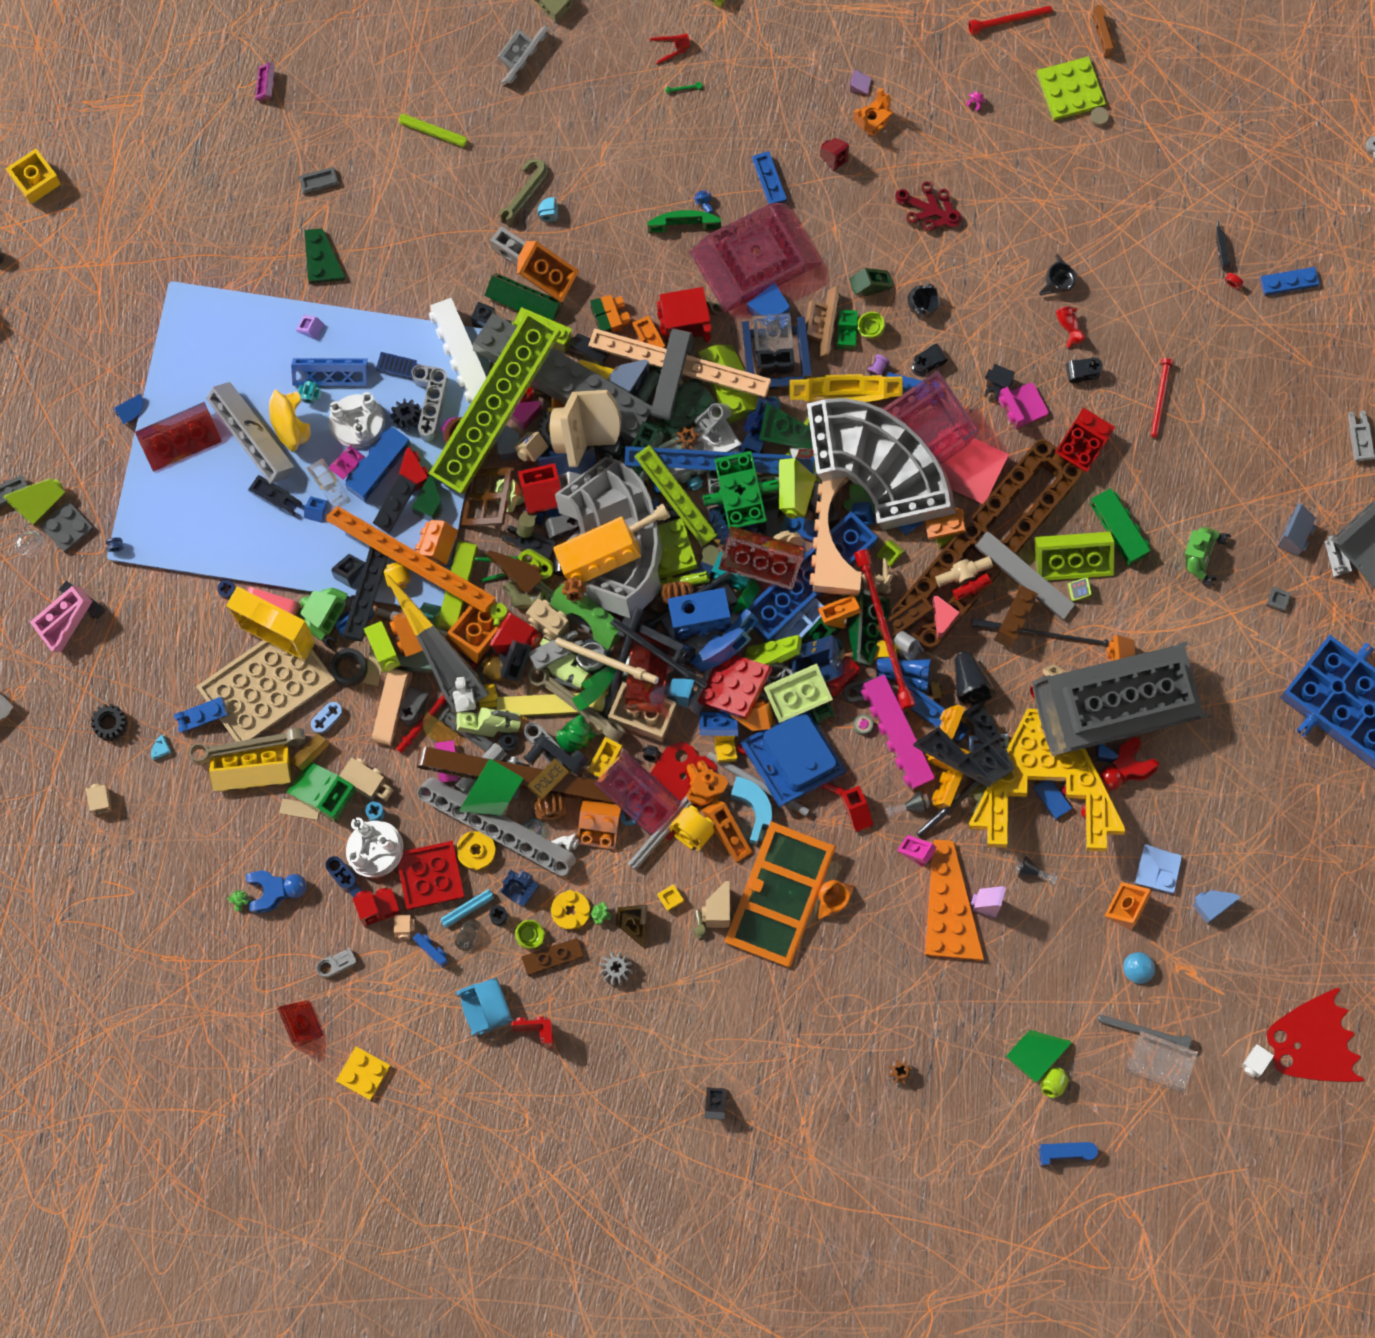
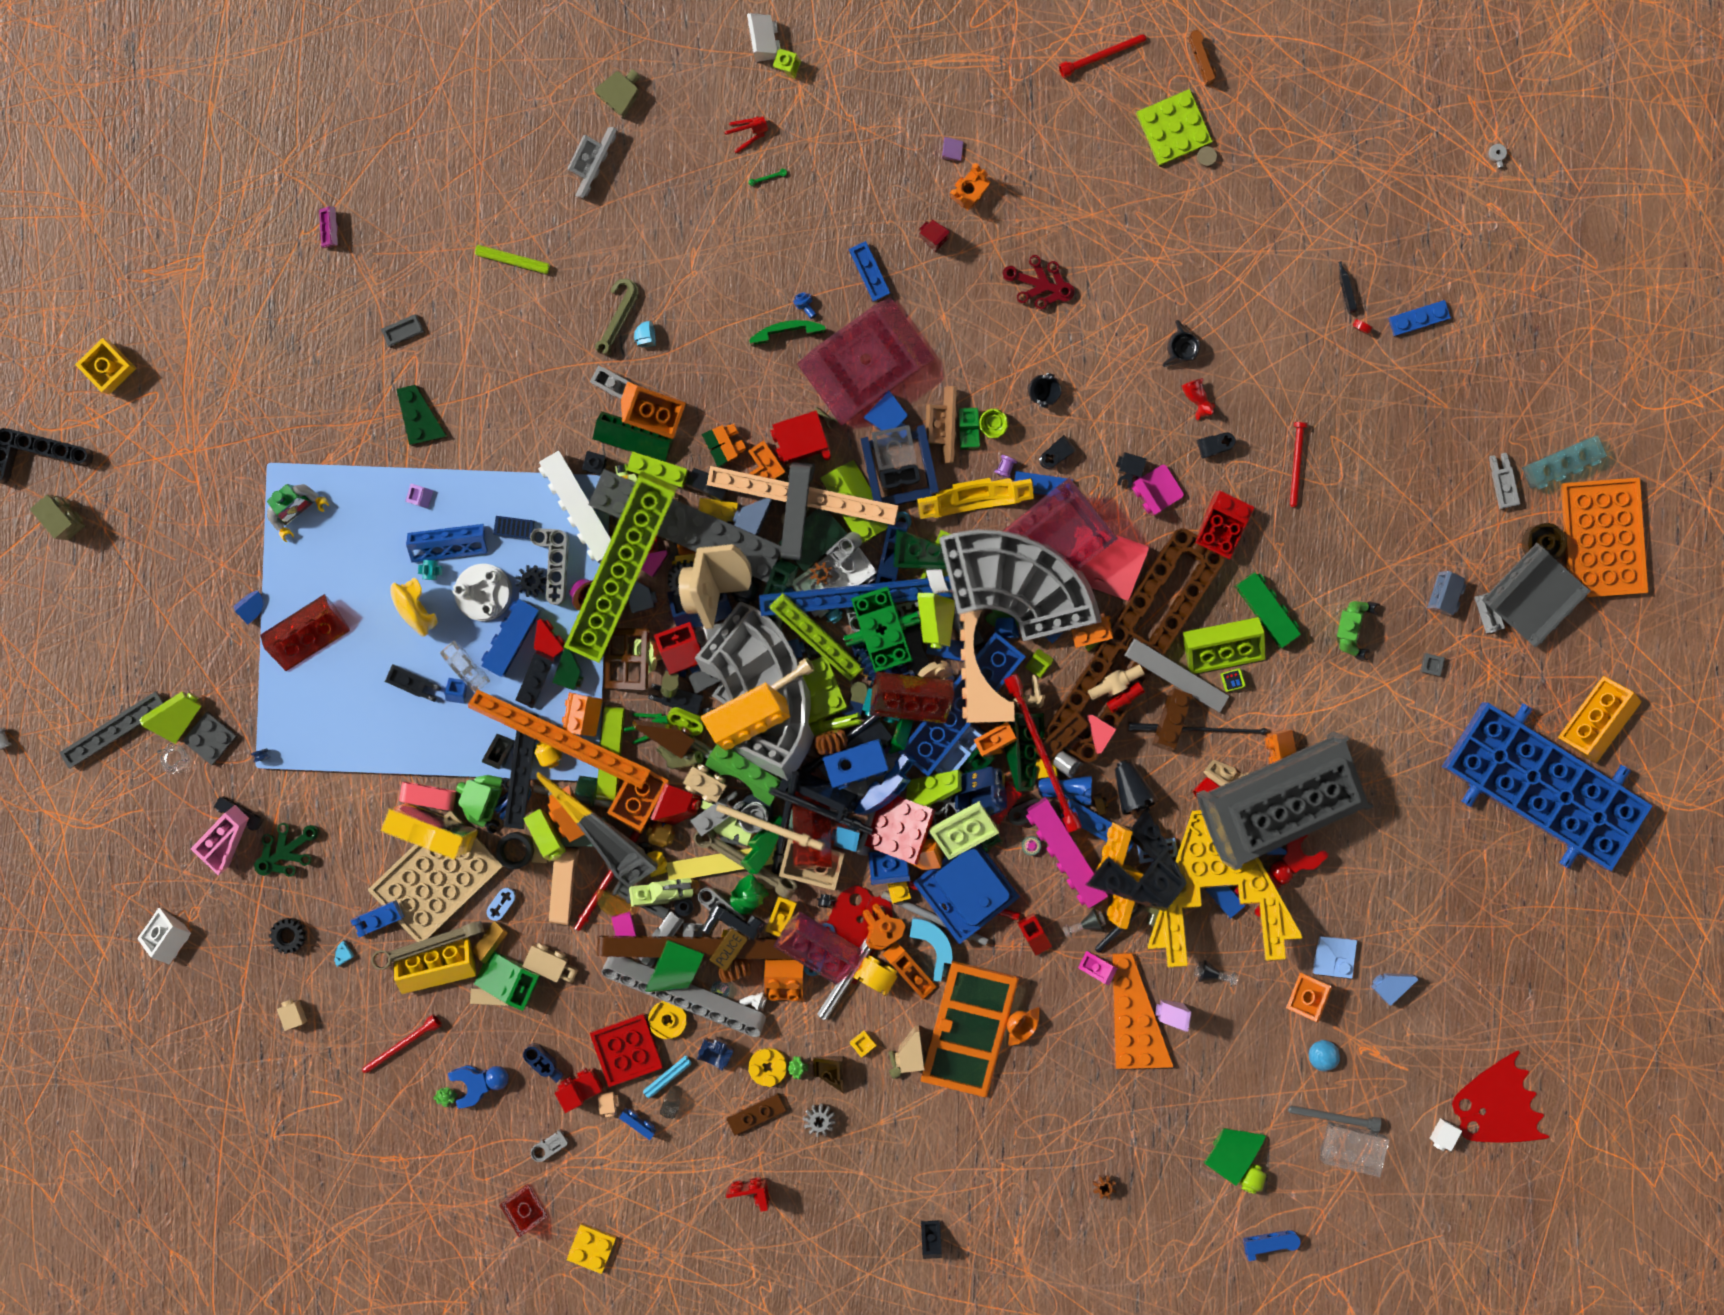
camera: 10 degrees left, 15 degrees up
(119, 641) = (283, 851): none -> dark green plant
(185, 315) = (289, 503): none -> torso
(221, 586) = (385, 787): dark blue bush -> none
(236, 826) = (430, 1024): none -> red piece
(250, 432) = (376, 621): light grey brick -> none
(346, 462) = (479, 641): dark pink slope -> none
(374, 848) = (568, 1031): white piece -> none
(375, 805) = (563, 1000): dark azure bush -> none
(413, 703) = (585, 879): dark grey piece -> none
(463, 697) = (633, 875): white plate -> none
(484, 1007) = (699, 1173): dark azure piece -> none
(498, 613) = (655, 788): lime piece -> none
(504, 917) = (696, 1087): black bush -> none
(514, 662) = (677, 830): black slope -> none
(529, 934) = (731, 1098): lime hair -> none
(531, 446) = (663, 602): tan brick -> none
(574, 589) = (727, 757): dark orange gear -> none
(648, 386) = (772, 520): sand green piece -> none
(752, 421) = (885, 549): clear blue plate -> none
(870, 281) = (988, 374): dark green slope -> none
(977, 97) = (1076, 151): dark pink plate -> none

